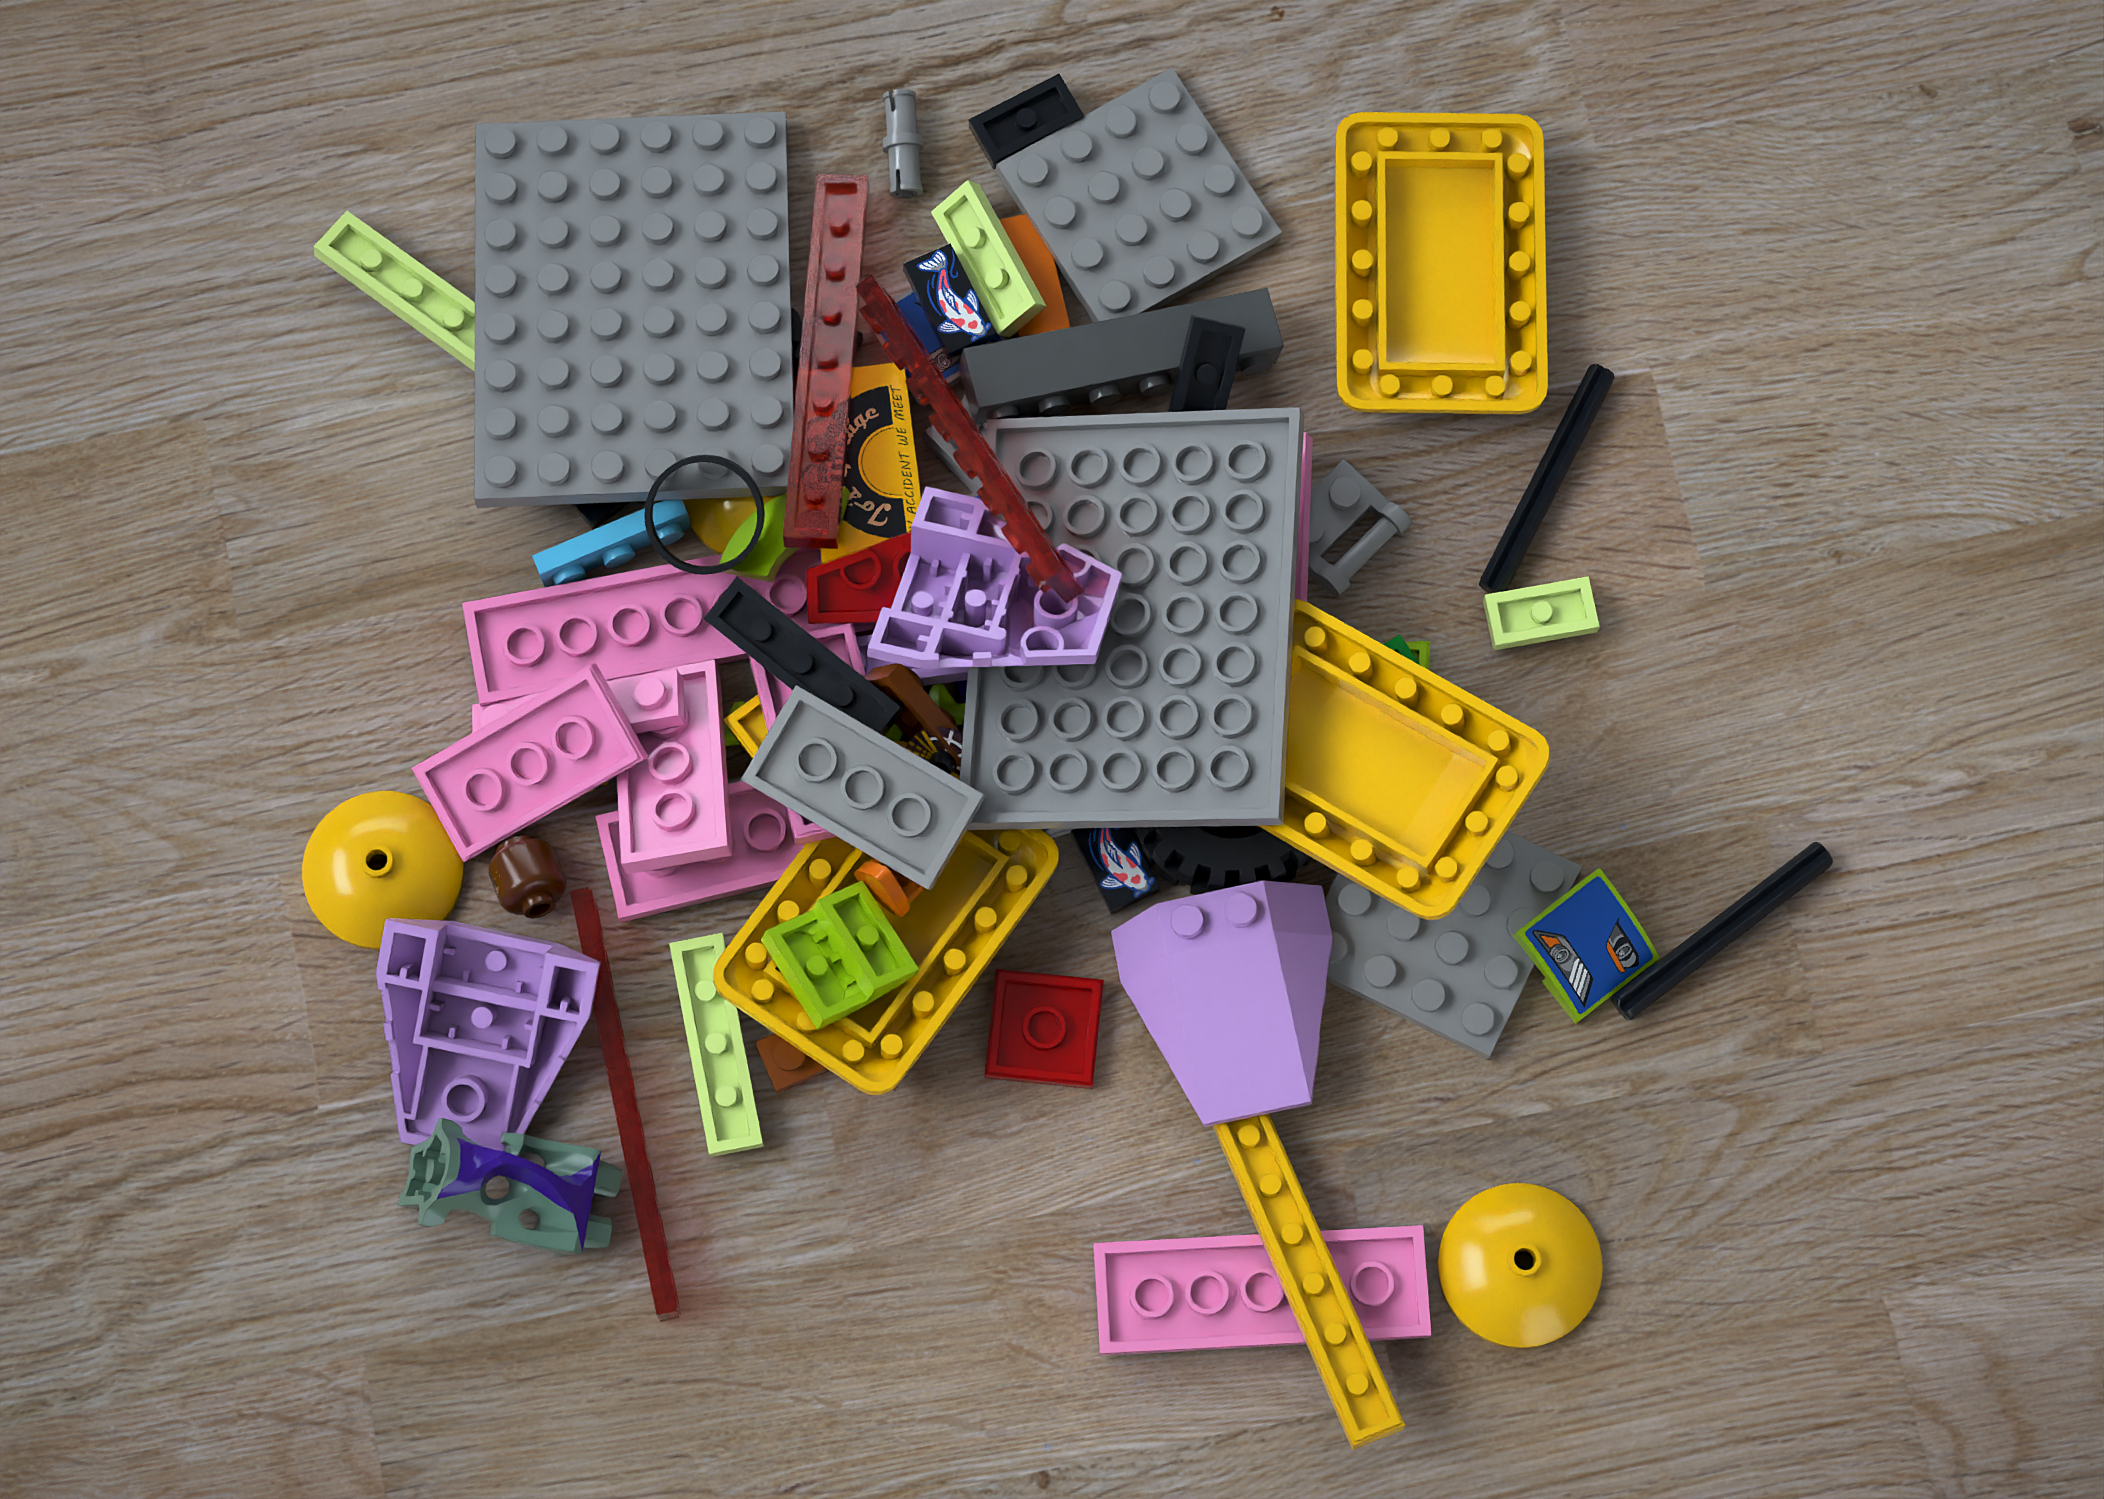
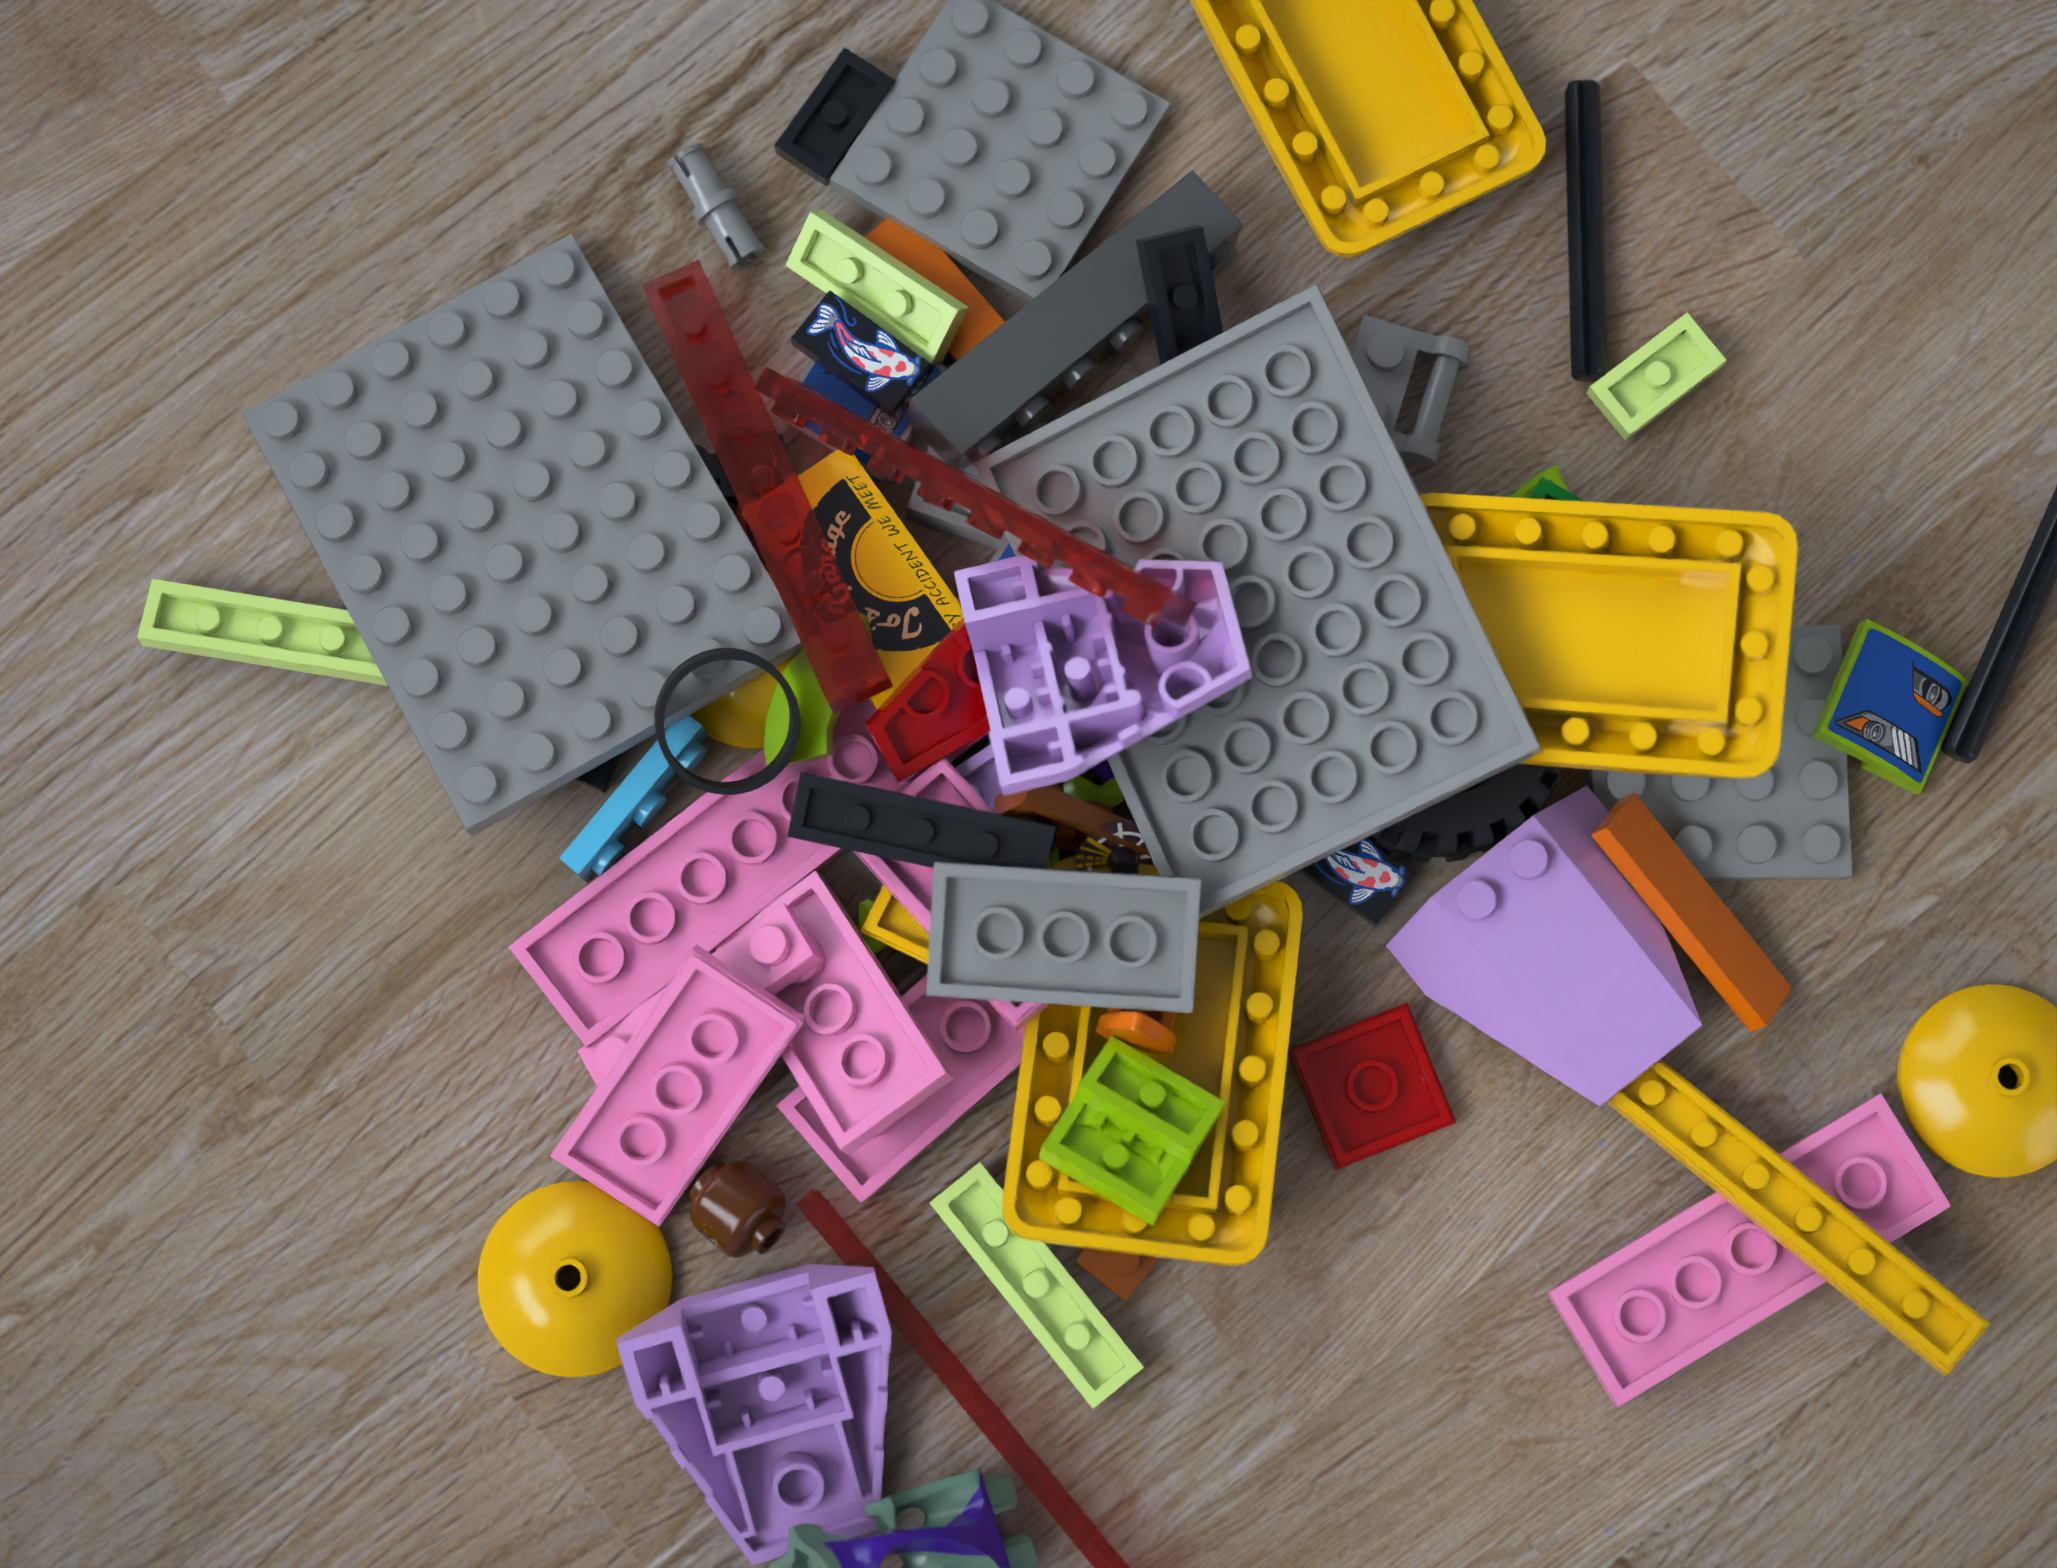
camera: 25 degrees left, 5 degrees up
(1350, 1017) = (1692, 912): none -> orange tile

